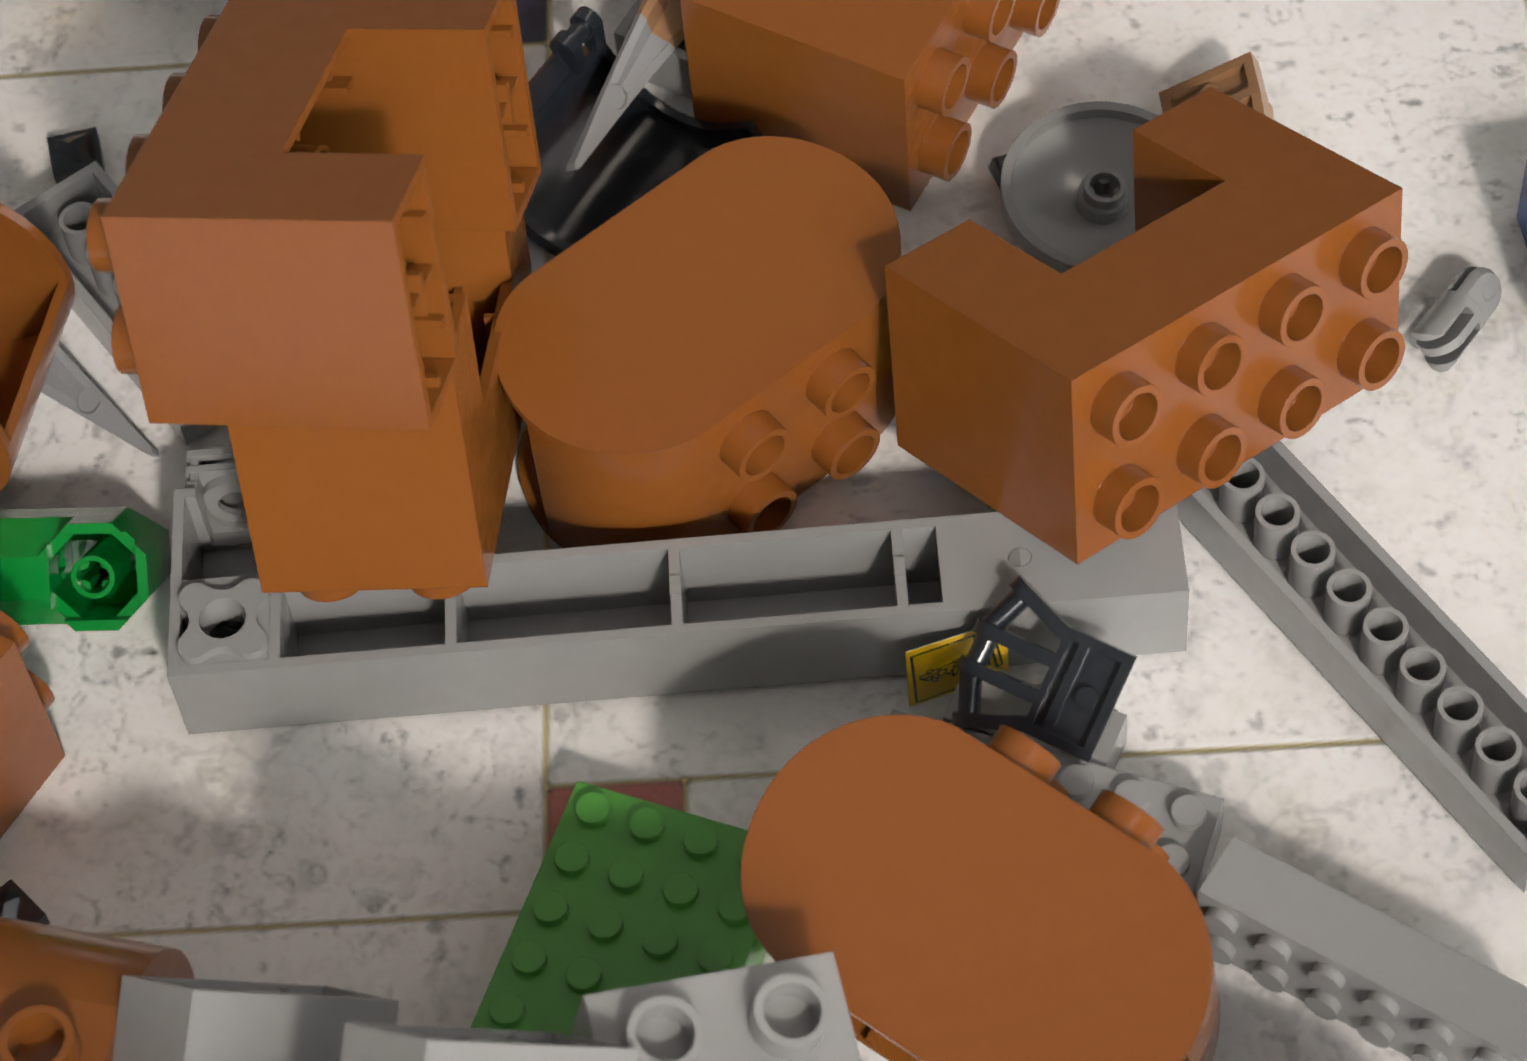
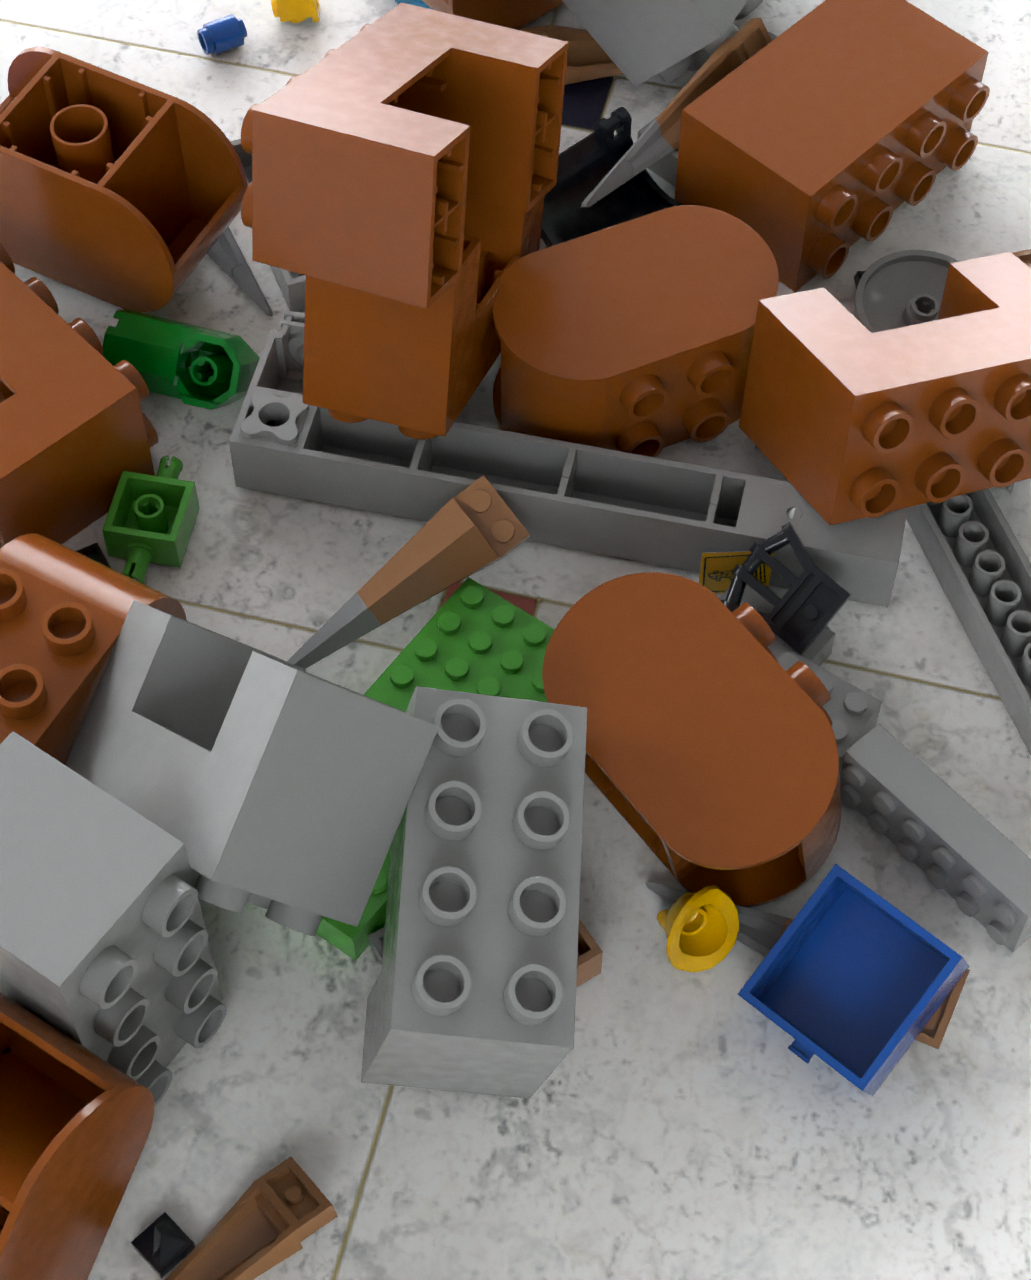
camera: 10 degrees right, 0 degrees up
(82, 823) = (151, 518): none -> bright green brick
(544, 741) = (454, 544): none -> medium nougat plate

